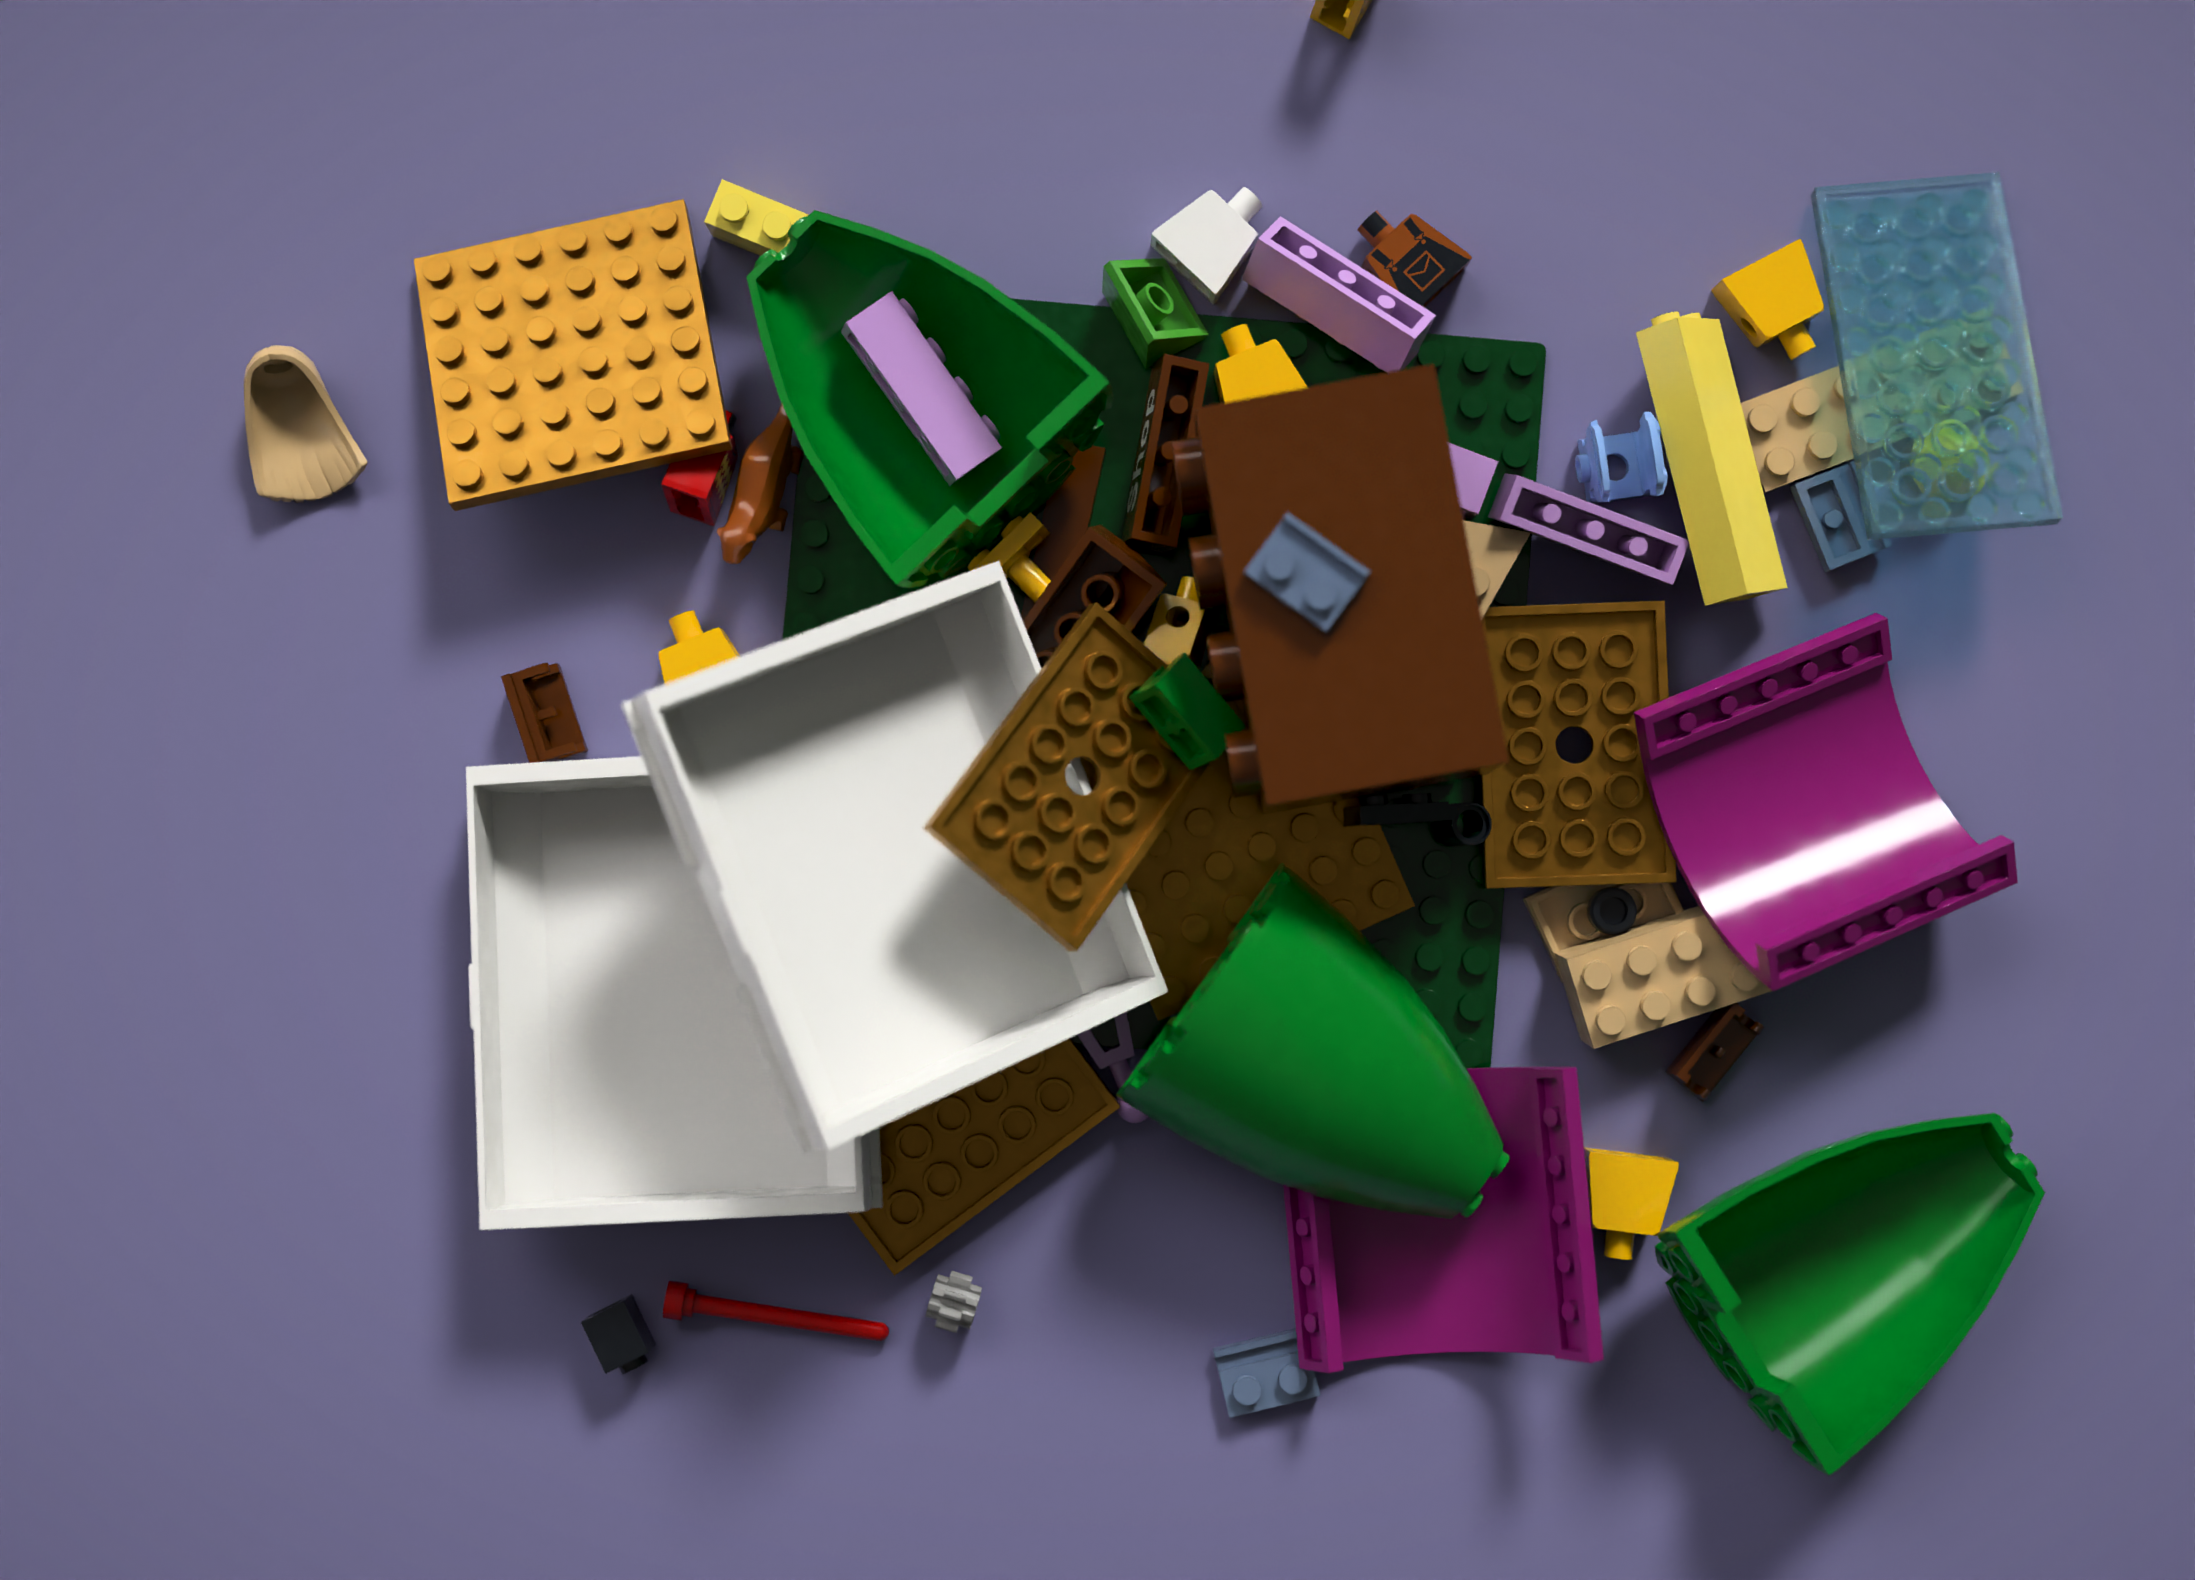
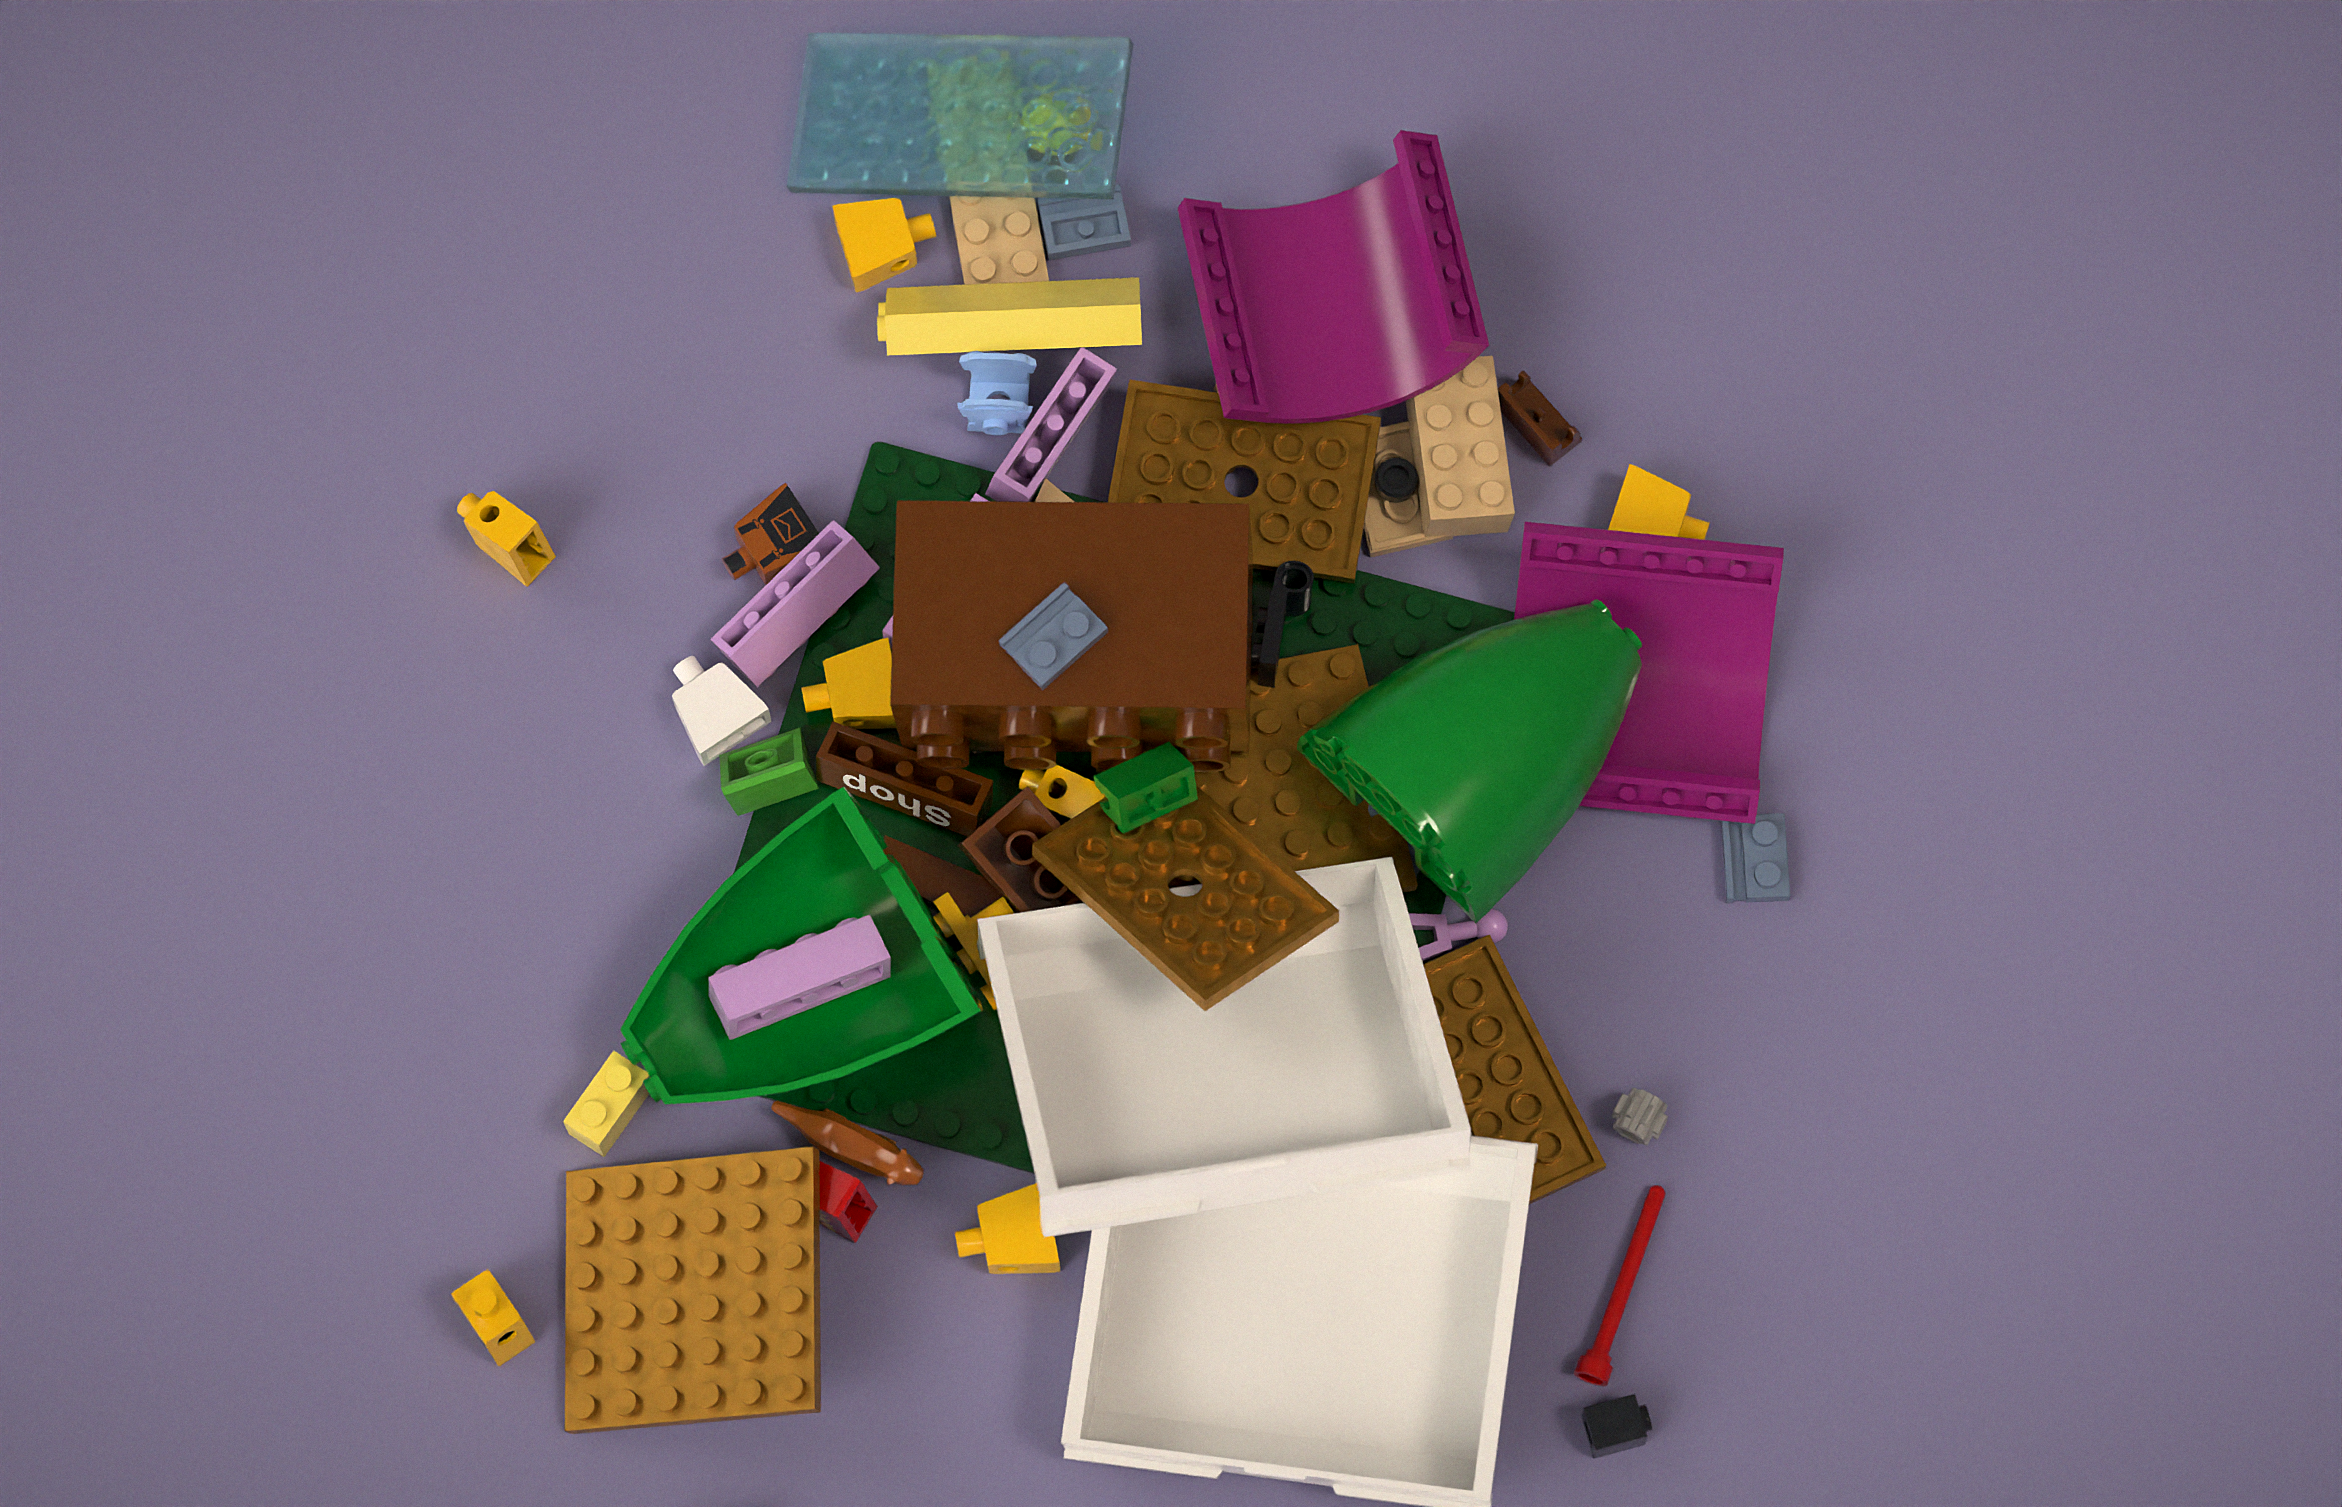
camera: 75 degrees left, 15 degrees down
(512, 154) = (493, 1316): none -> yellow torso
(544, 713) = (1022, 1390): reddish brown hinge -> none
(1852, 1273) = (1750, 340): green panel -> none

